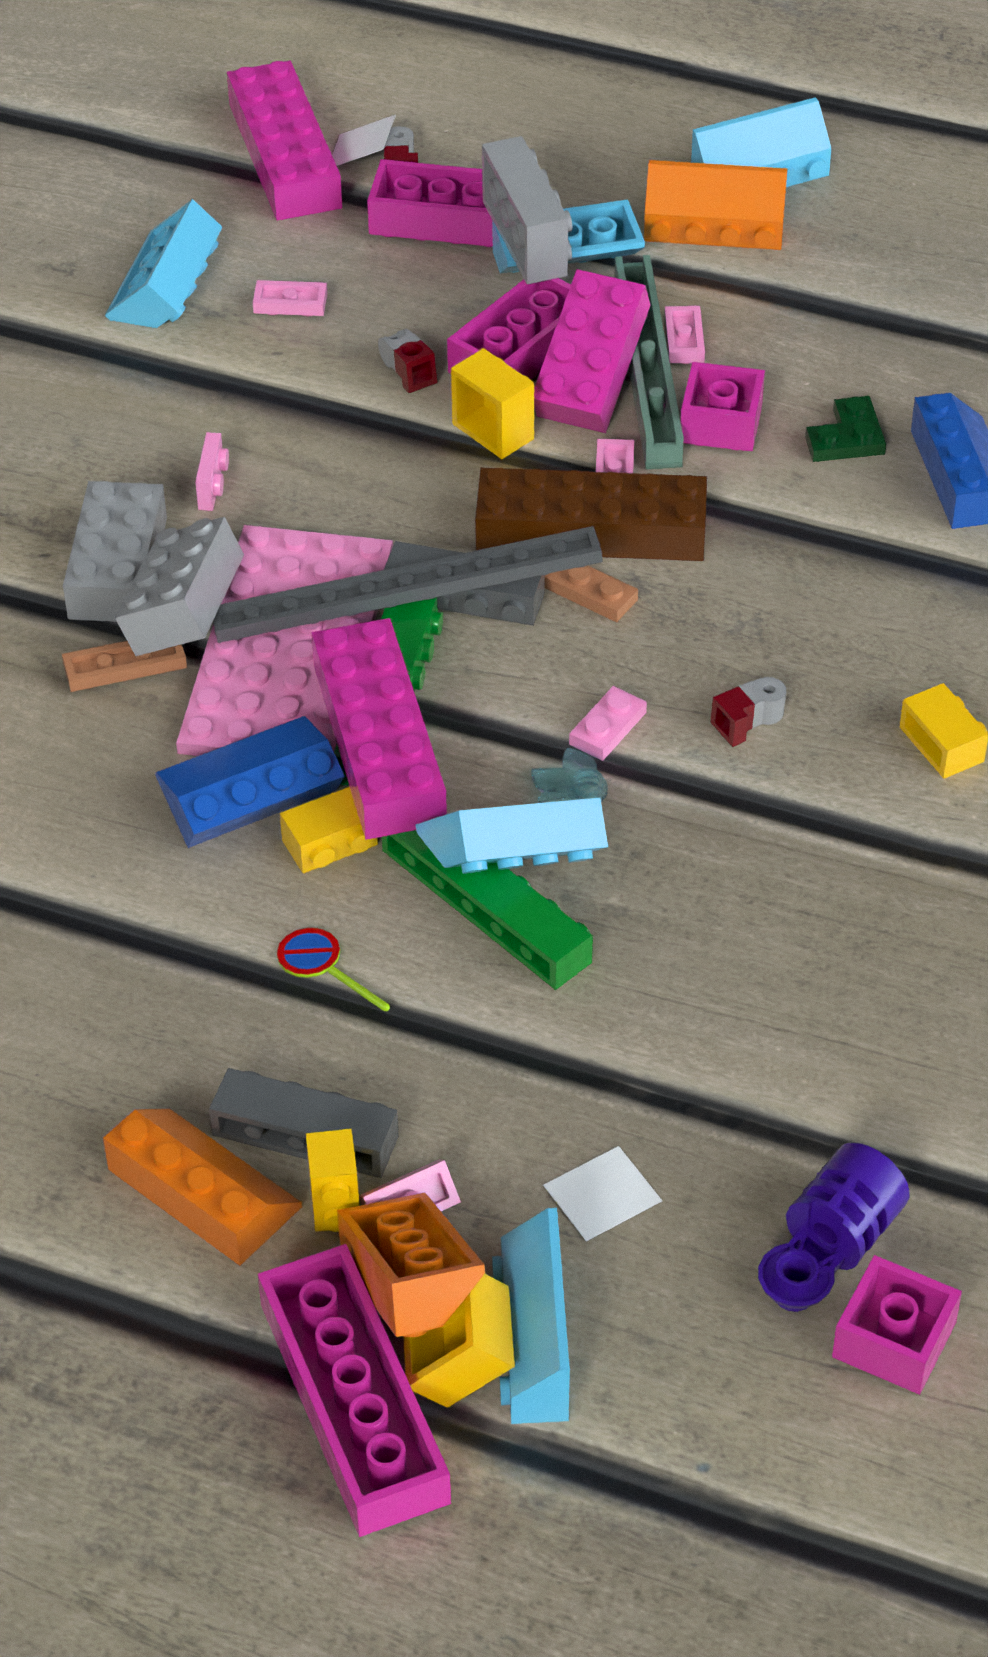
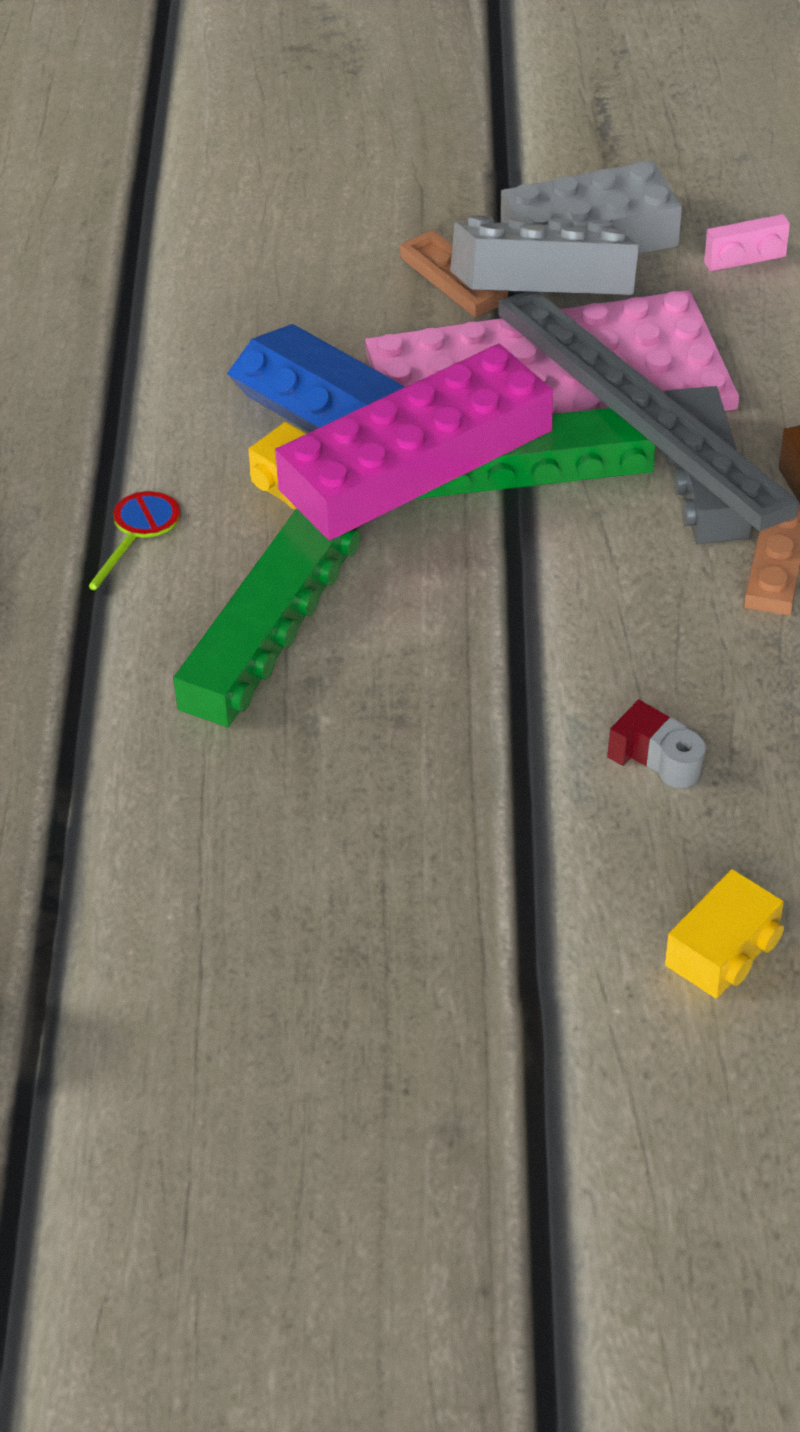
camera: 70 degrees right, 0 degrees up
(516, 834) = (325, 589): slope -> none
(573, 781) = (468, 633): clear light blue plate -> none
(607, 723) = (576, 639): bright pink plate -> none

